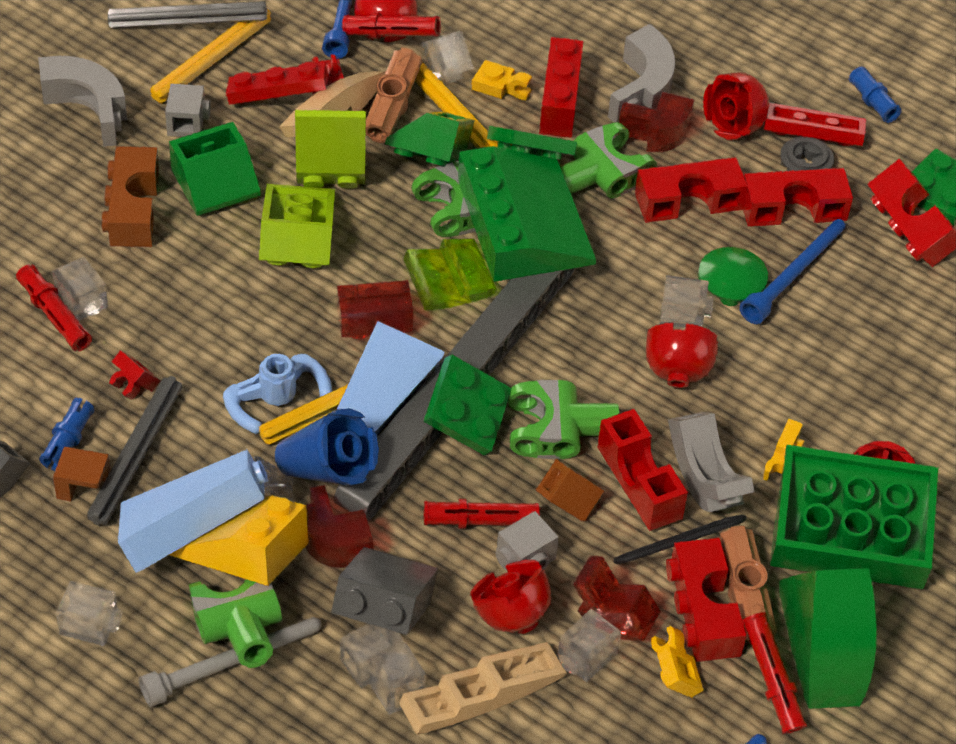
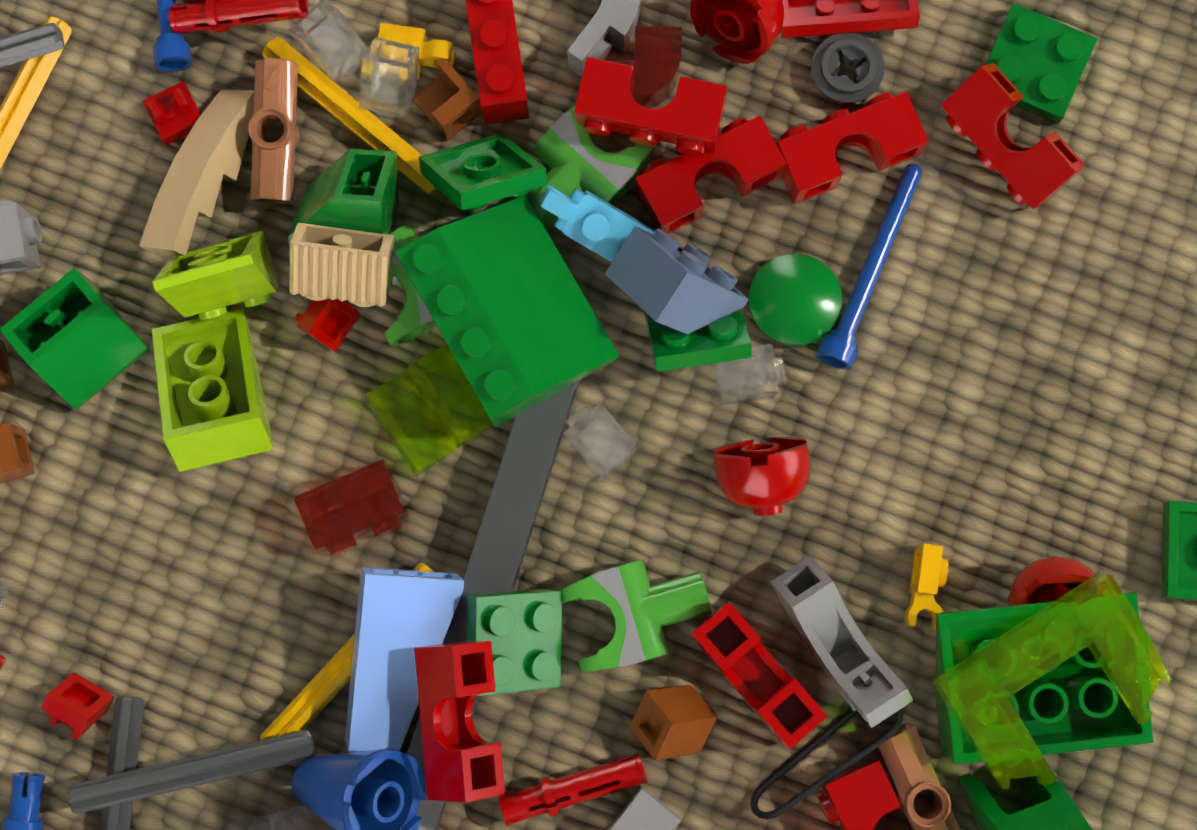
camera: 10 degrees left, 30 degrees up
(203, 423) = (190, 772): none -> dark grey axle
(274, 385) = (262, 666): light blue piece -> none
(277, 82) = (114, 157): red plate -> none
(393, 203) = (328, 321): none -> red tile
(406, 444) = (456, 758): none -> red arch
(418, 157) = (341, 264): none -> tan brick
(481, 84) = (389, 77): none -> clear brick
(521, 113) = (448, 101): none -> dark orange panel
(566, 315) = (599, 440): none -> clear brick
(606, 196) = (590, 220): none -> medium azure hinge
(648, 222) = (674, 281): none -> sand blue slope
(666, 263) = (714, 343): none -> green plate
(682, 139) = (688, 120): none -> red arch
(899, 465) = (1090, 616): none -> clear neon green wedge

